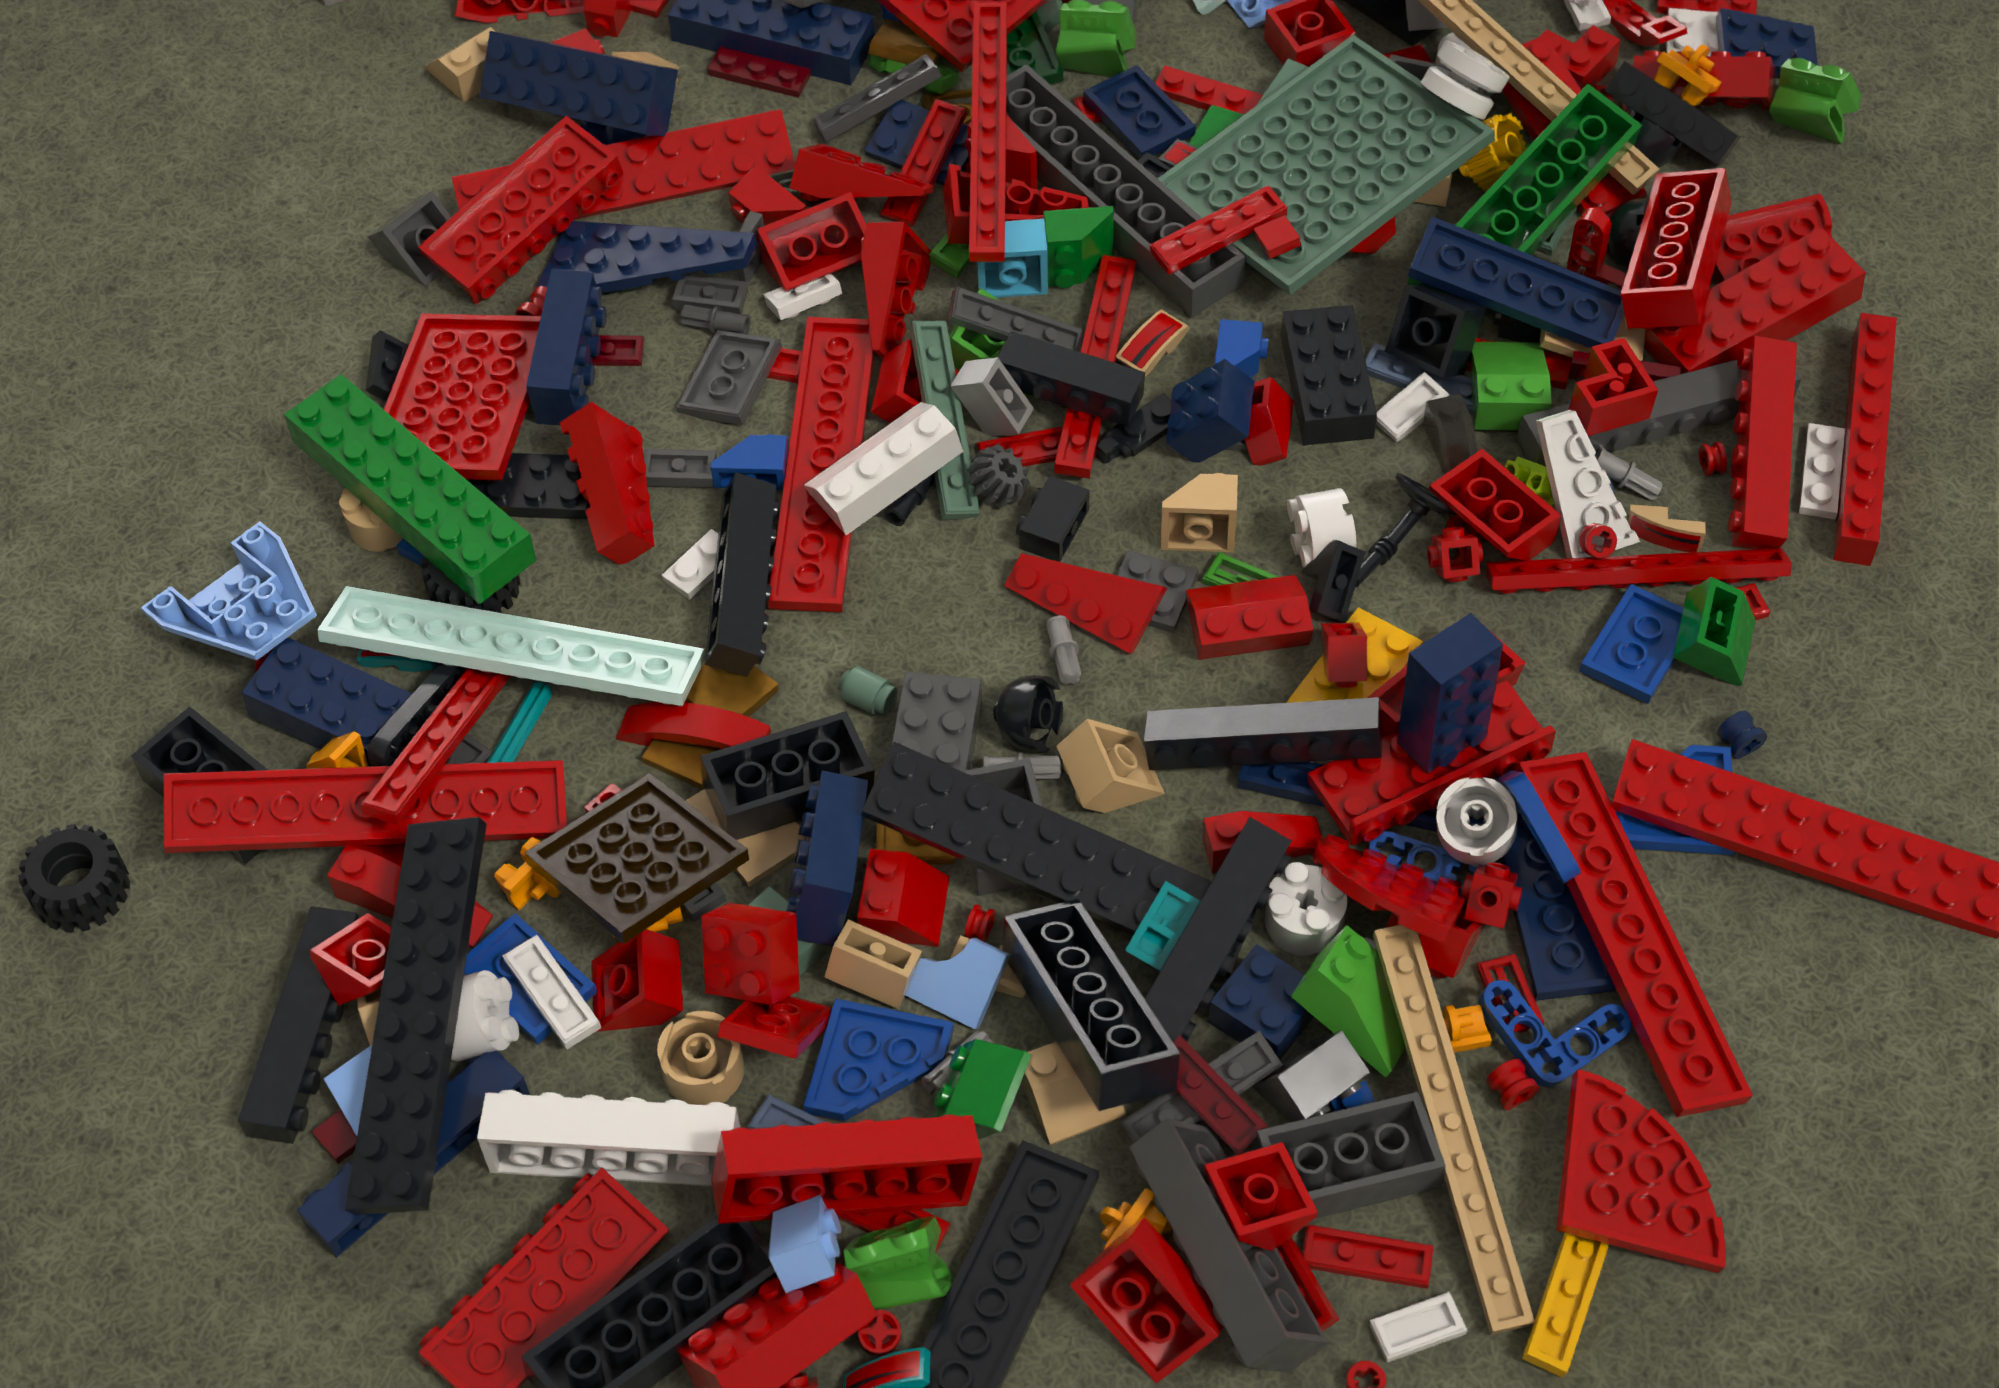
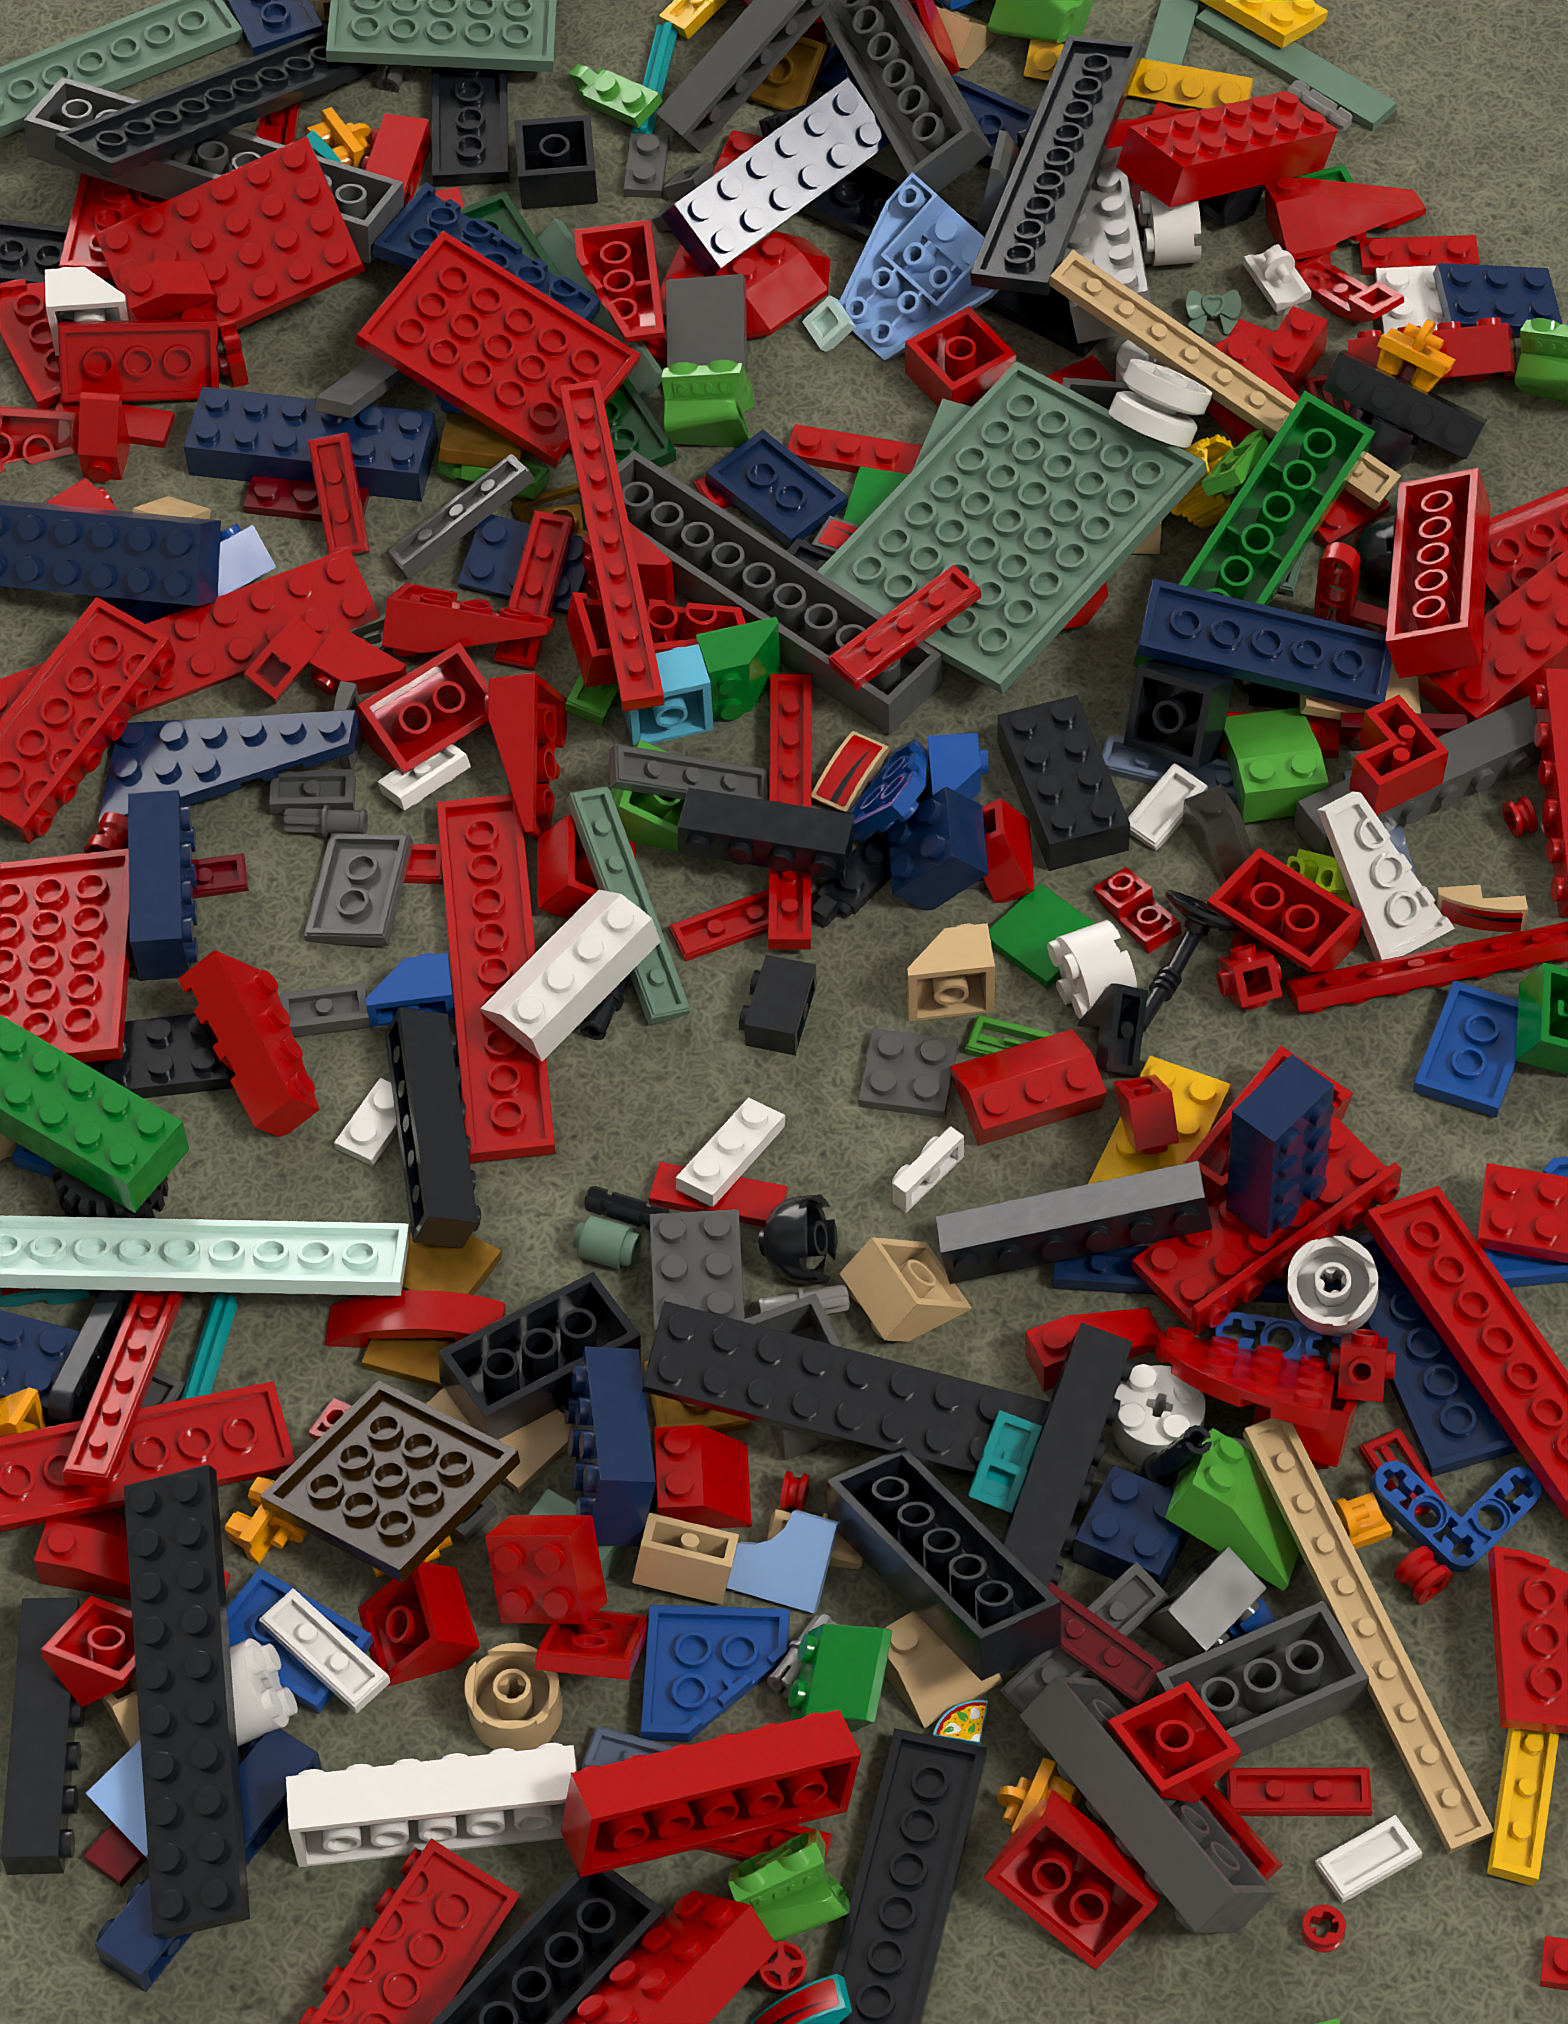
camera: 10 degrees left, 0 degrees up
(692, 105) = (241, 558): none -> slope
(708, 188) = (284, 659): none -> red slope
(783, 67) = (338, 494): none -> red tile
(804, 1243) = (684, 1882): light blue brick -> none
(885, 662) = (621, 1206): none -> black axle
(952, 658) = (752, 1197): none -> red tile
(986, 632) = (730, 1152): none -> white plate
(992, 397) = (679, 870): light grey brick -> none
(998, 476) = (705, 963): dark grey gear -> none
(1063, 649) = (823, 1158): light grey axle -> none
(1084, 1145) = (963, 1722): none -> tile
(1094, 600) = (847, 1095): red wing -> none
(1149, 672) = (928, 1169): none -> white plate
(1180, 362) = (892, 791): none -> blue plate
(1272, 488) = (1028, 928): none -> green tile
(1277, 237) = (975, 626): red tile -> none
(1310, 945) = (1179, 1454): none -> black pin
(1369, 485) = (1134, 907): none -> red slope
(1518, 140) = (1236, 465): none -> bright green hinge
(1527, 20) = (1212, 306): none -> sand green piece
(1540, 825) = (1404, 1278): blue beam -> none
(1599, 551) = (1409, 947): red bush -> none
(1628, 475) = (1429, 852): light grey axle -> none

